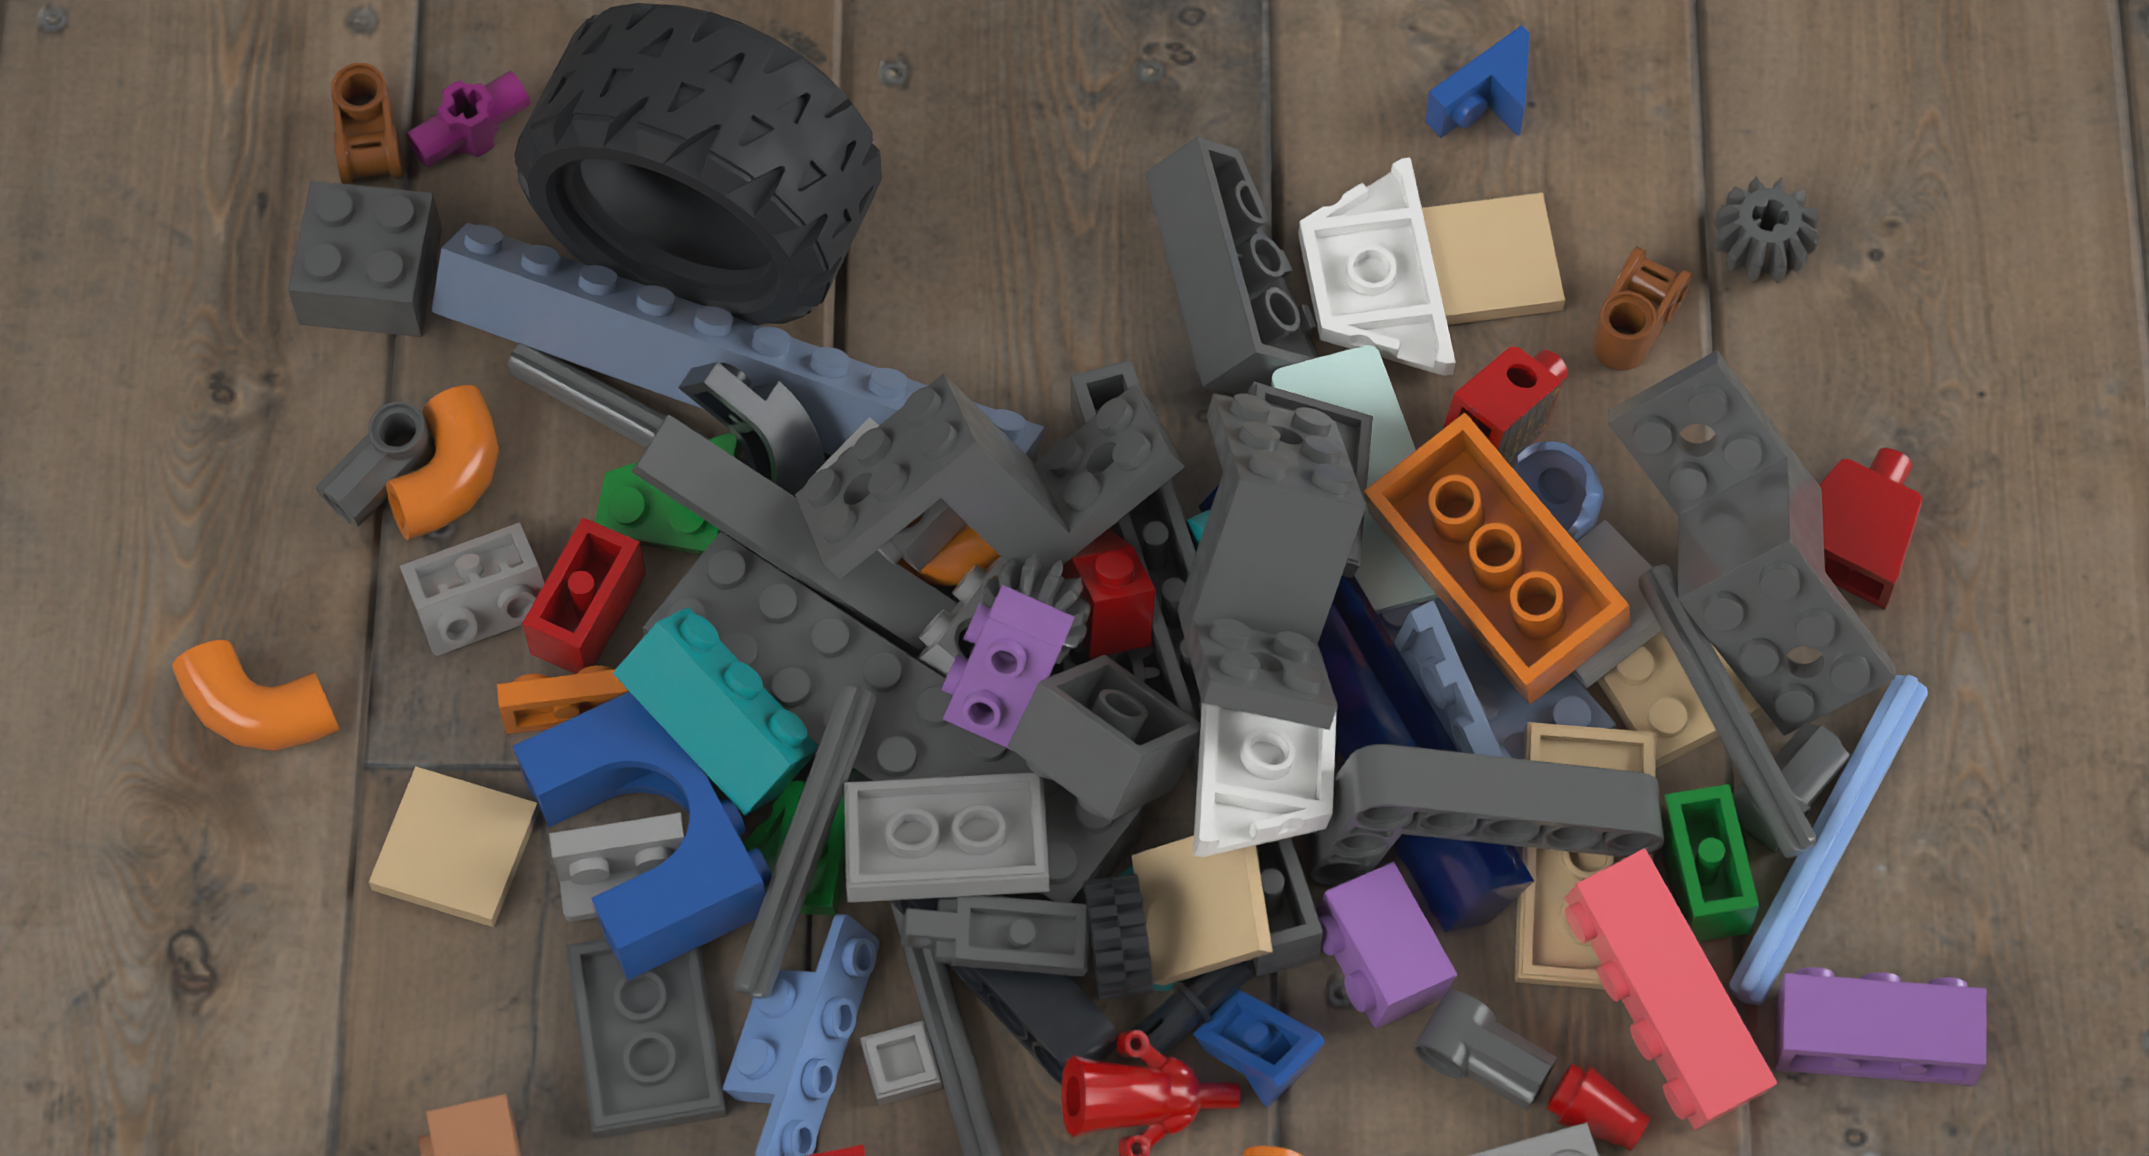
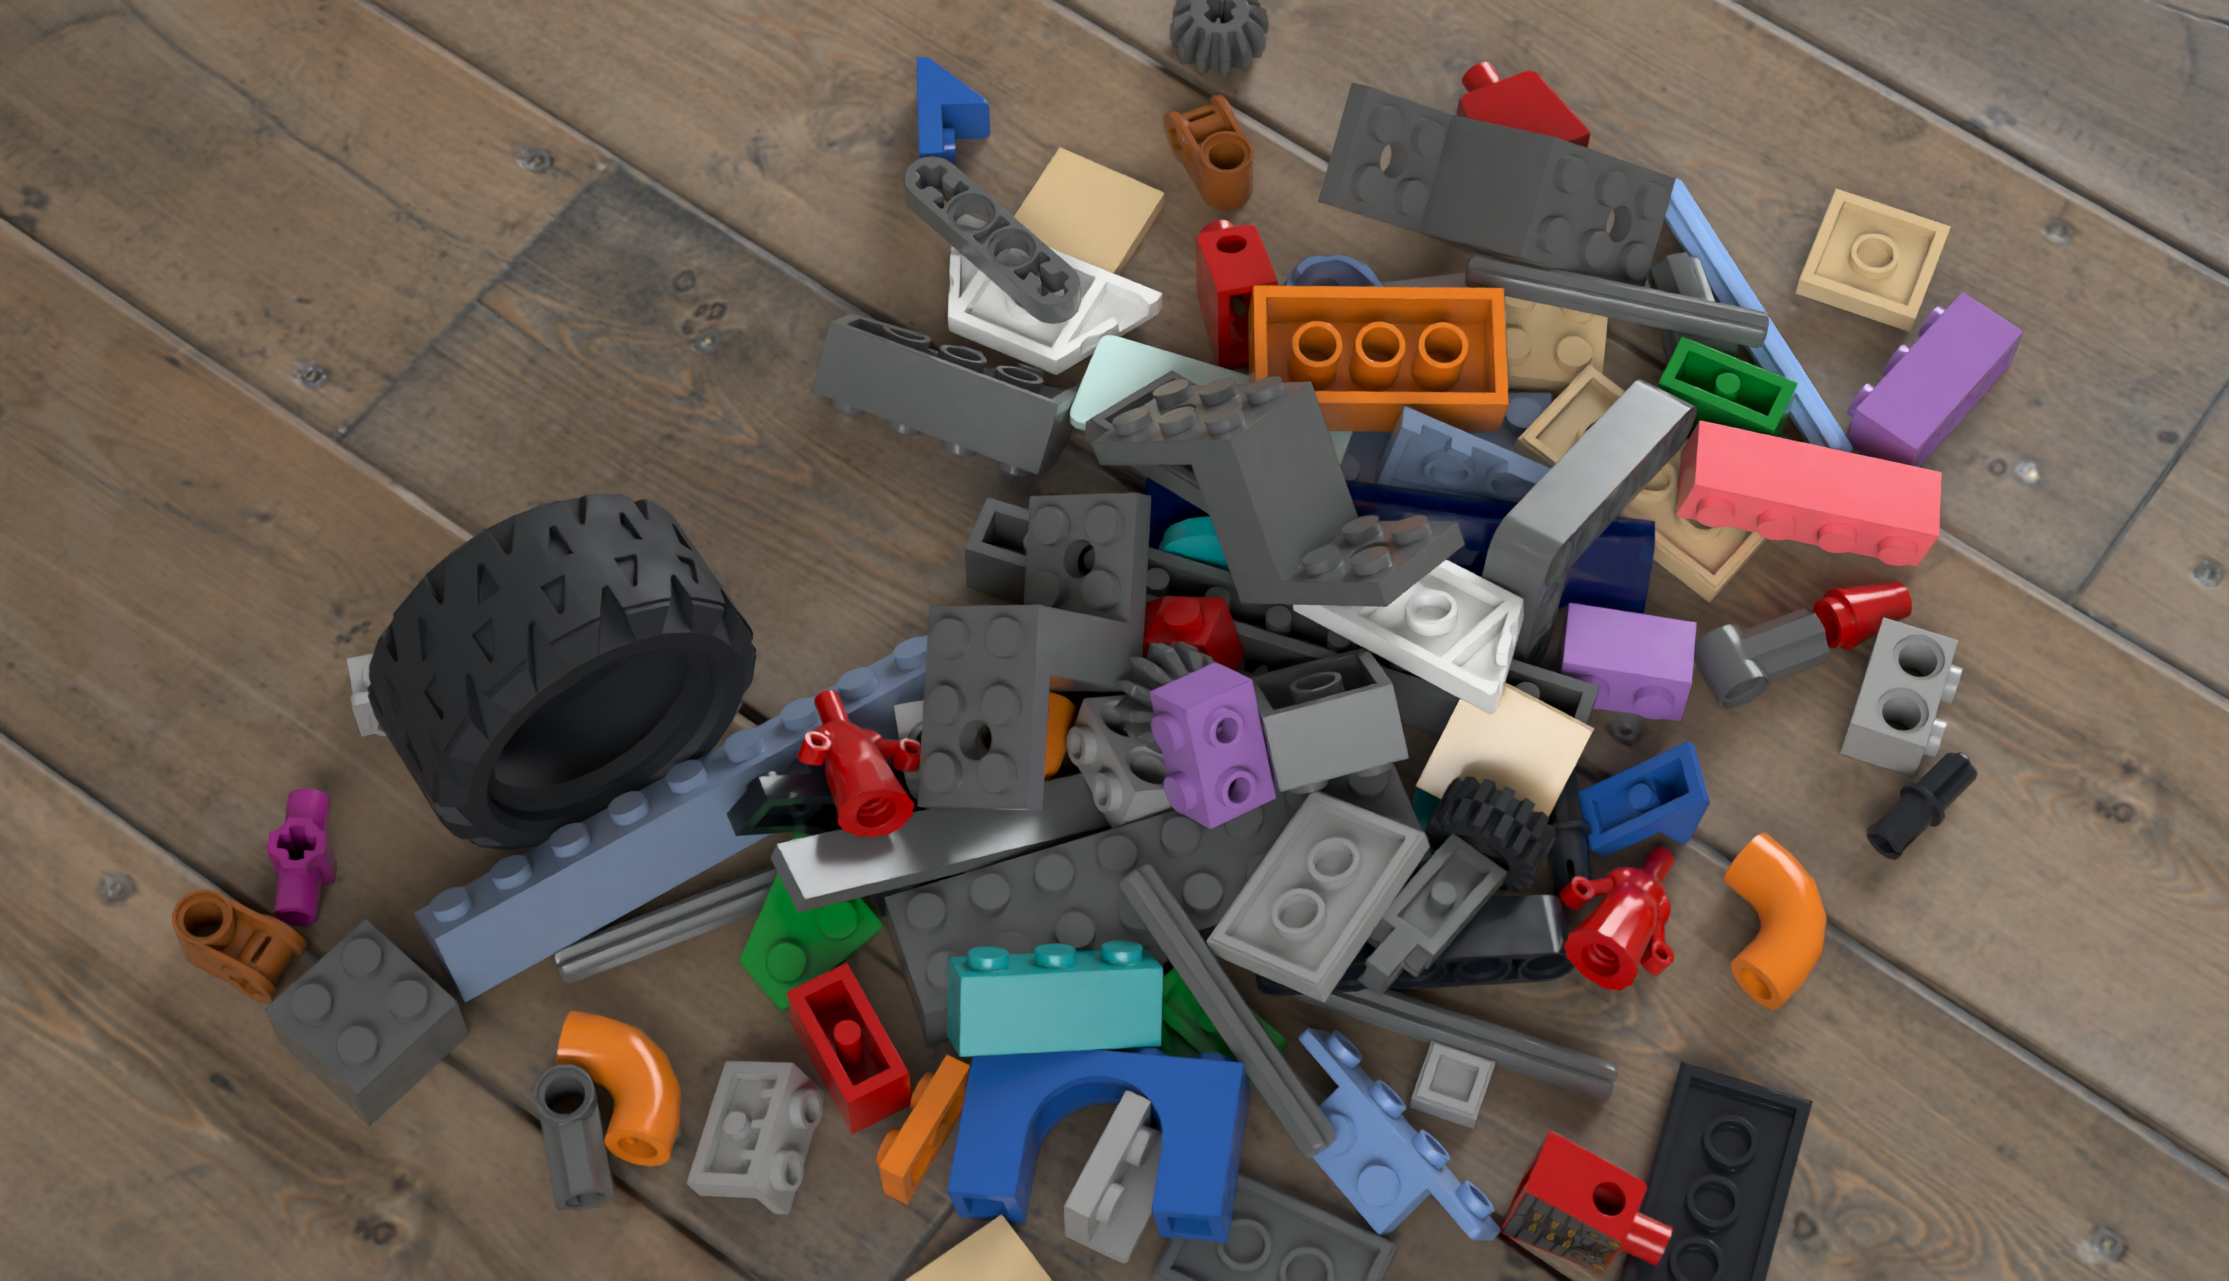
camera: 55 degrees left, 5 degrees down
(777, 436) = (857, 773): none -> red piece
(1395, 201) = (986, 243): none -> dark grey beam
(1977, 900) = (1873, 260): none -> tan plate

